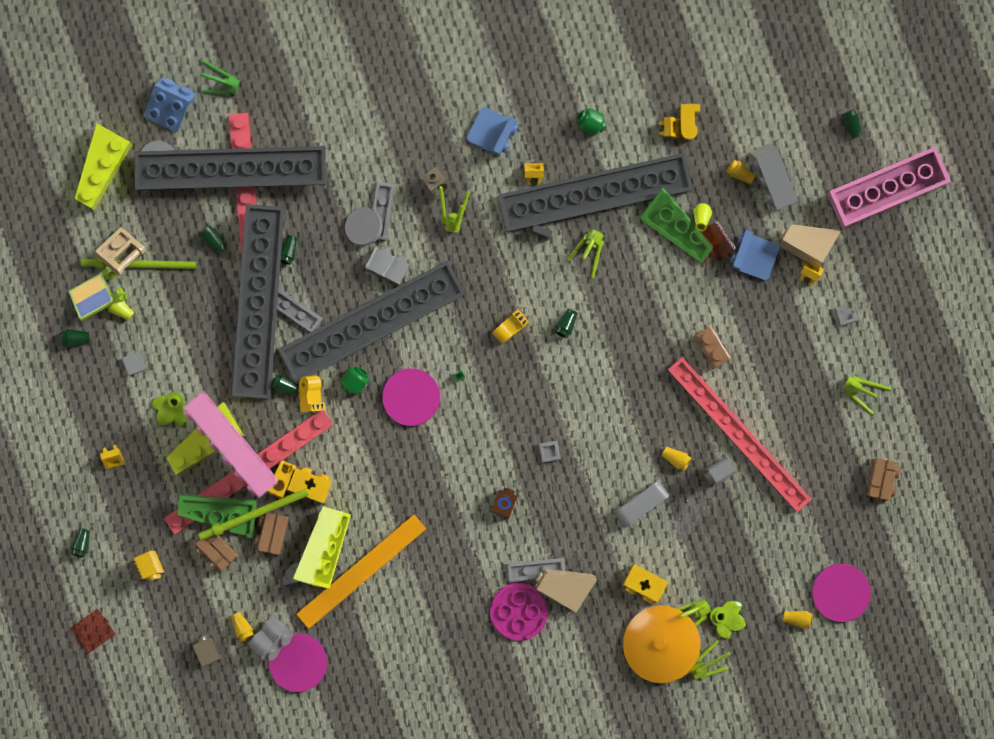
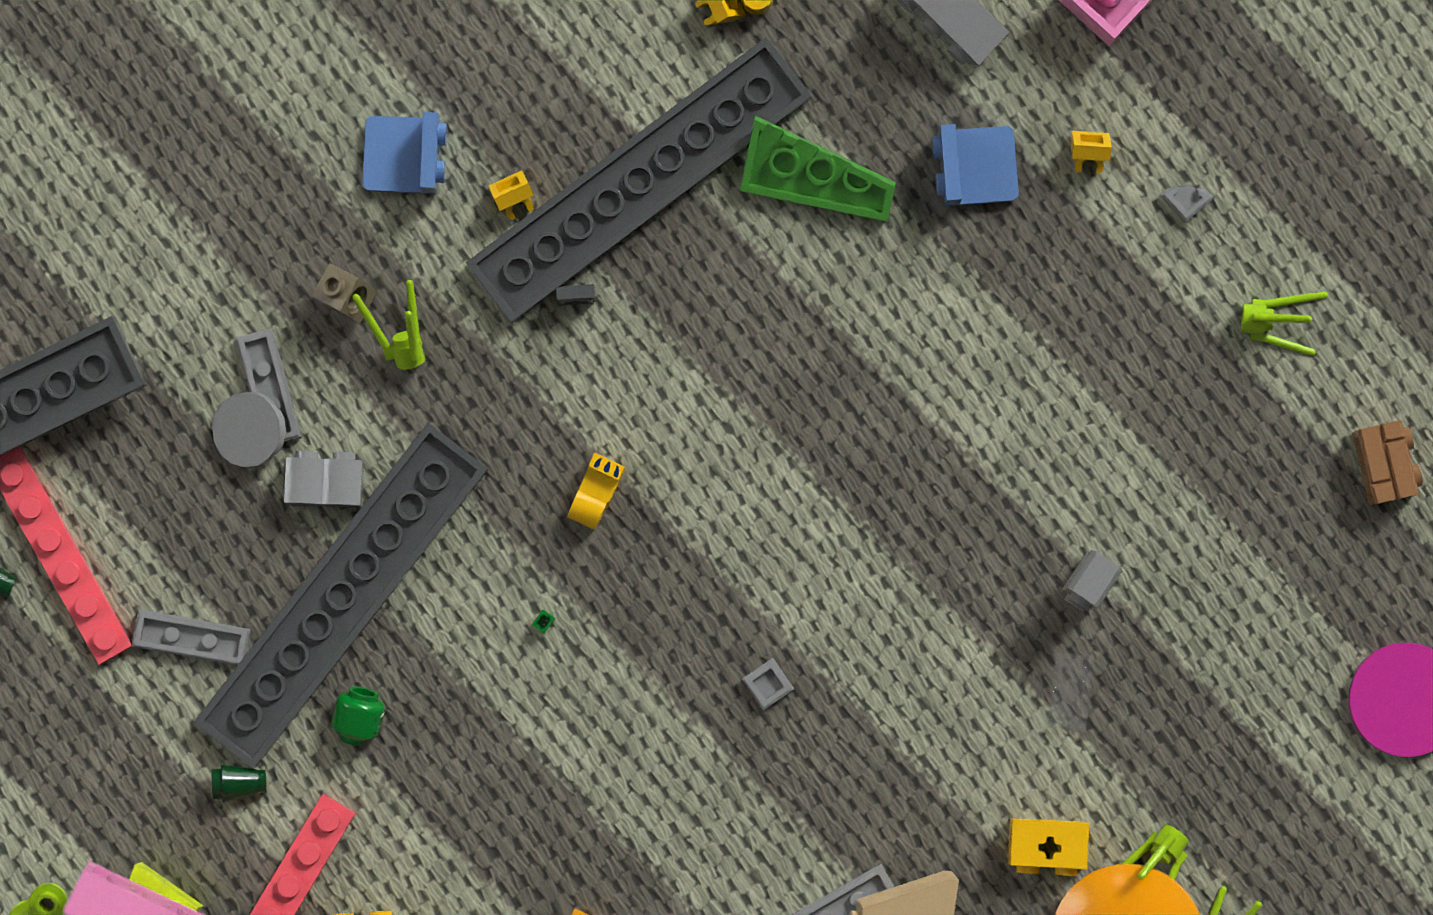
camera: 25 degrees left, 0 degrees up
(258, 301) = (117, 652): dark grey plate -> none
(288, 250) = (130, 536): dark green cone -> none
(310, 394) = (289, 777): yellow leg -> none
(411, 397) = (473, 698): dark pink tile -> none
(504, 502) = (728, 813): reddish brown brick -> none
(566, 323) = (693, 440): dark green cone -> none
(591, 122) = (574, 57): green head -> none
(593, 240) = (673, 267): lime plant -> none
(641, 504) = (976, 703): light grey beam -> none
(677, 458) = (1003, 592): yellow cone -> none
(702, 215) = (849, 135): neon yellow cone -> none
(712, 347) = (974, 364): medium nougat brick -> none
(720, 240) = (901, 165): clear red piece -> none
(730, 618) = (1229, 837): lime plate -> none
(739, 434) = (1095, 498): coral plate -> none
(740, 172) = (881, 27): yellow cone -> none
(798, 618) = (1351, 782): yellow cone -> none
(808, 242) = (1062, 98): tan slope -> none

